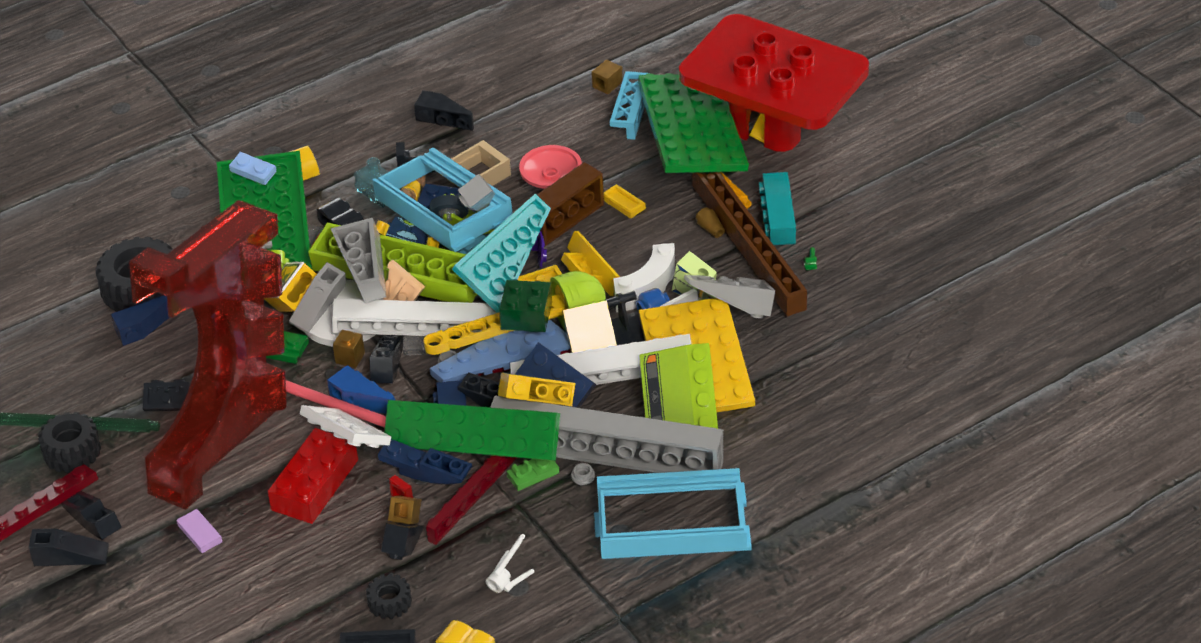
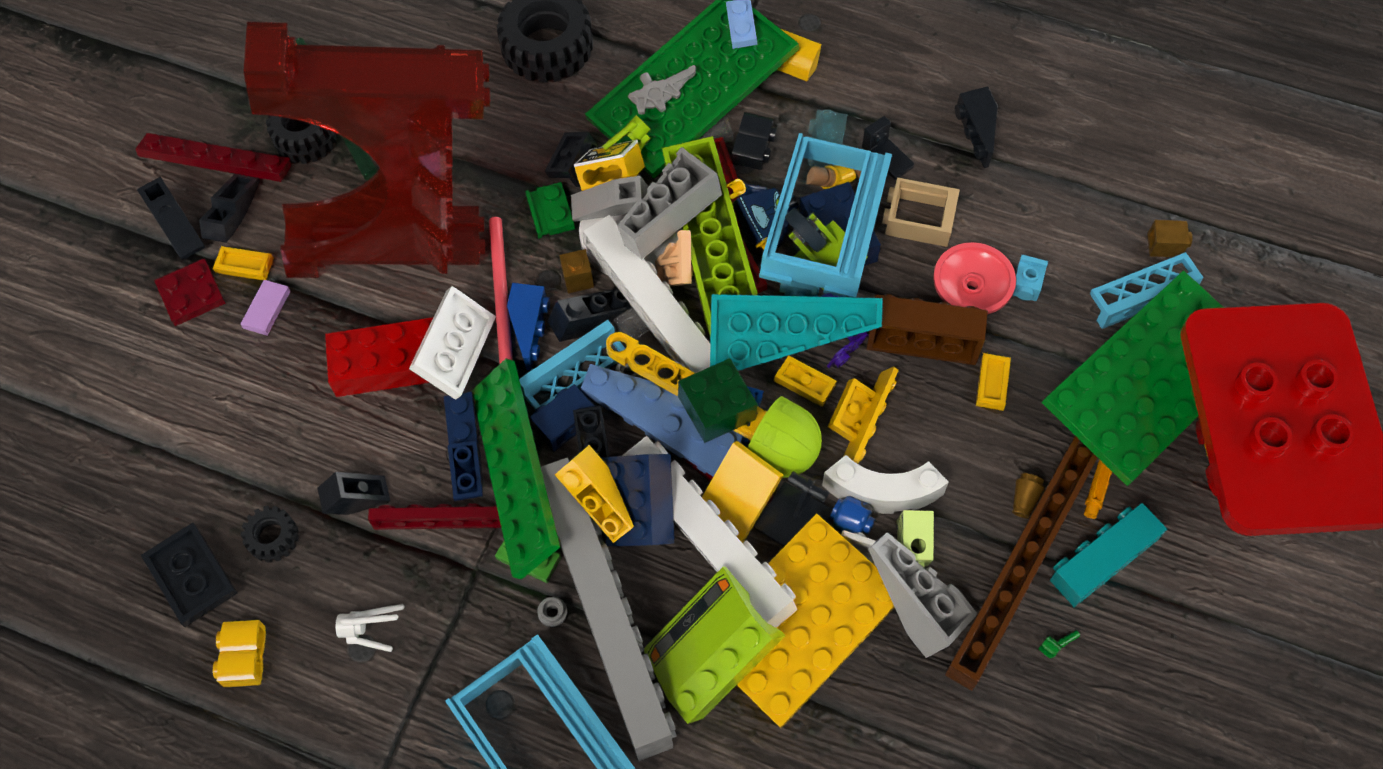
camera: 55 degrees right, 20 degrees up
(139, 570) = (189, 292): none -> dark red plate
(140, 320) = (510, 78): dark blue slope -> none
(146, 529) = (243, 263): none -> yellow tile
(399, 487) = (415, 449): red tile -> none
(404, 509) = (384, 472): pearl gold brick -> none
(411, 377) = (566, 360): none -> medium azure fence
(476, 194) = (815, 245): light grey slope -> none
(573, 142) = (1029, 277): none -> medium azure brick

